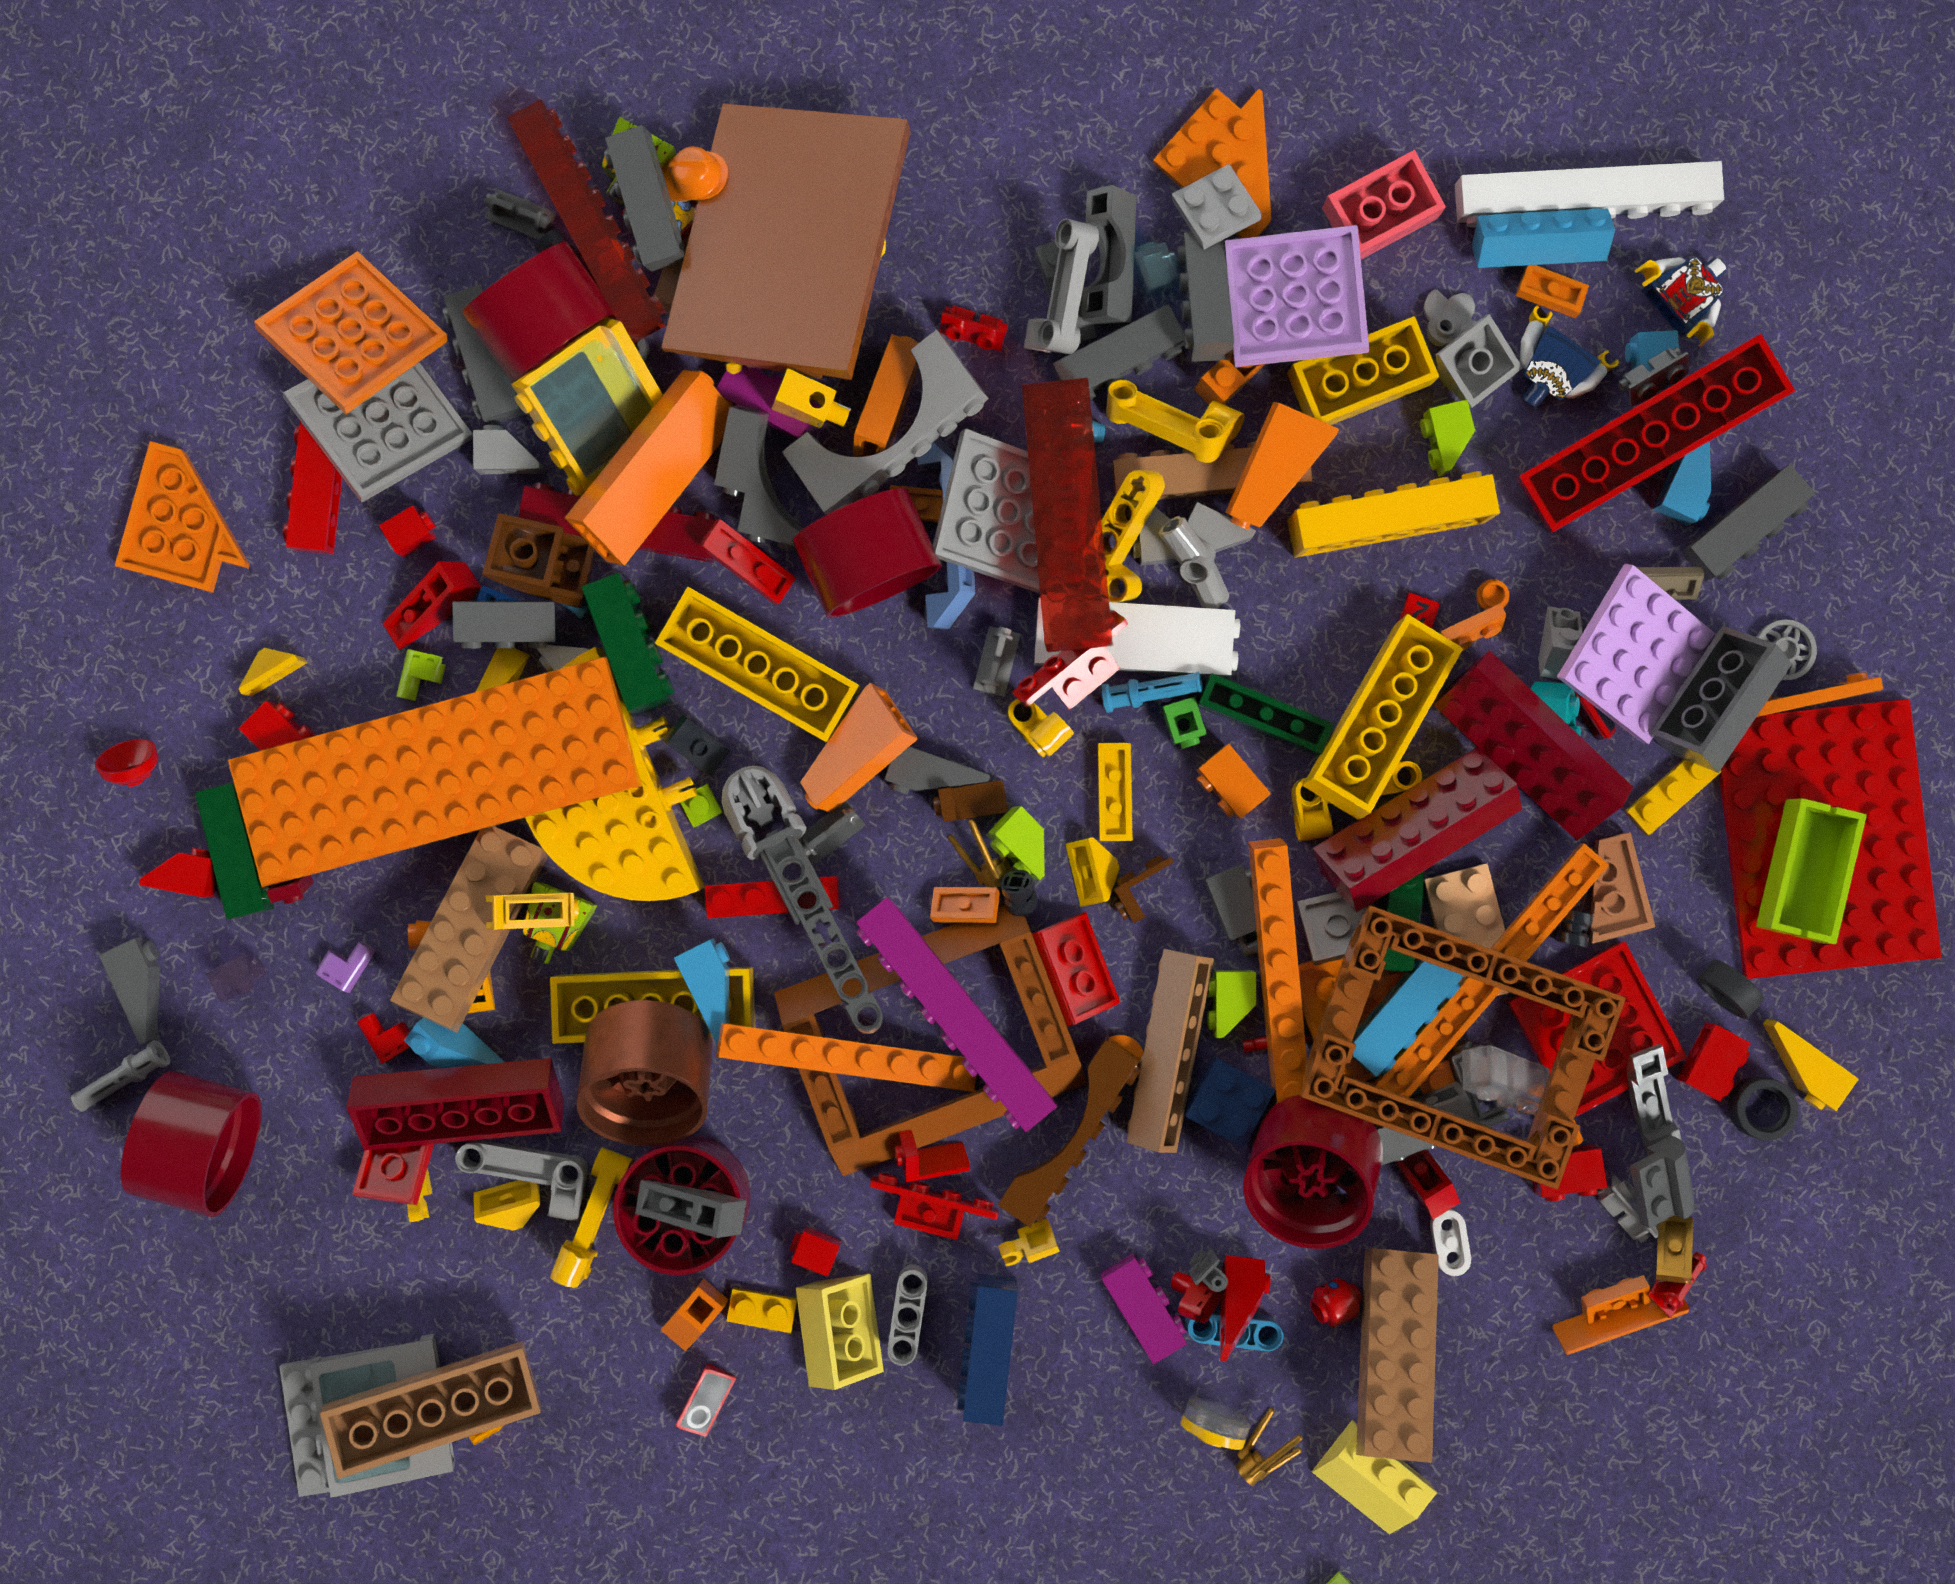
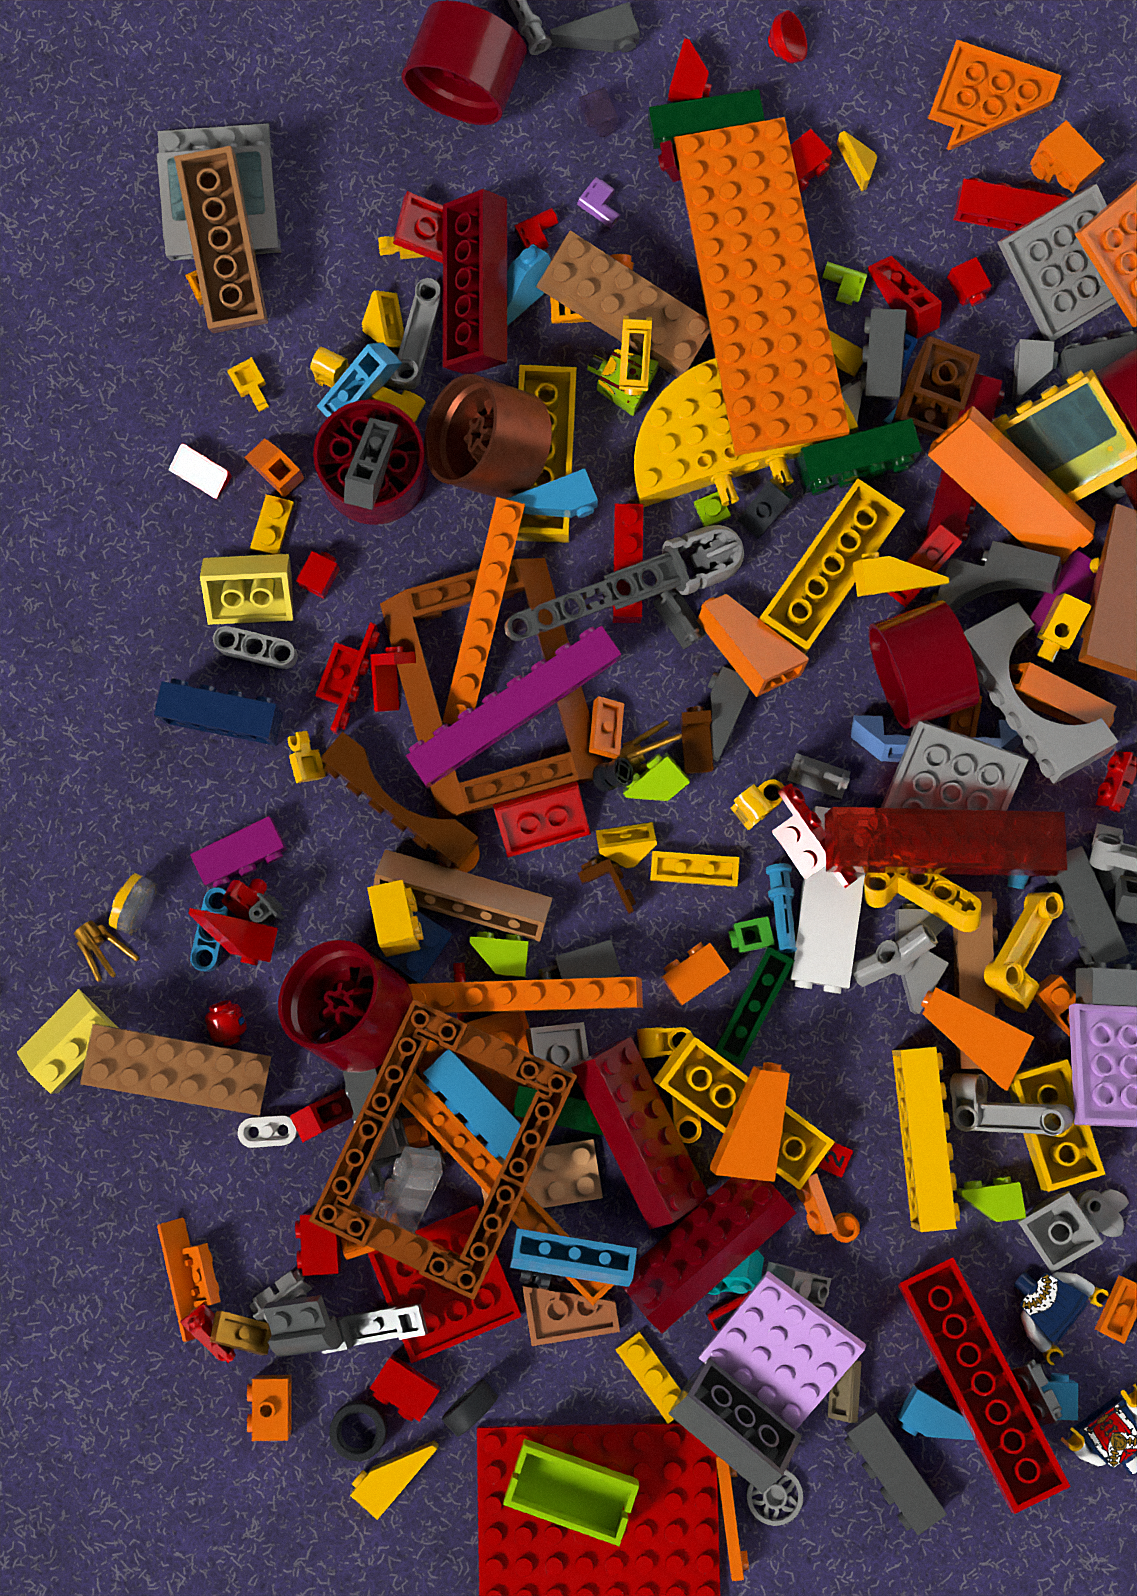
camera: 95 degrees right, 5 degrees down
(251, 429) = (1067, 157): none -> orange brick
(585, 1226) = (362, 378): none -> dark azure slope
(594, 1356) = (248, 381): none -> yellow plate
(767, 602) = (890, 574): none -> yellow slope
(1211, 1126) = (394, 919): none -> yellow brick
(1339, 468) = (970, 1093): none -> light grey piece
(1406, 702) = (755, 1128): none -> orange slope
(1564, 891) = (573, 1257): none -> dark azure brick
(1749, 1207) = (270, 1407): none -> orange brick

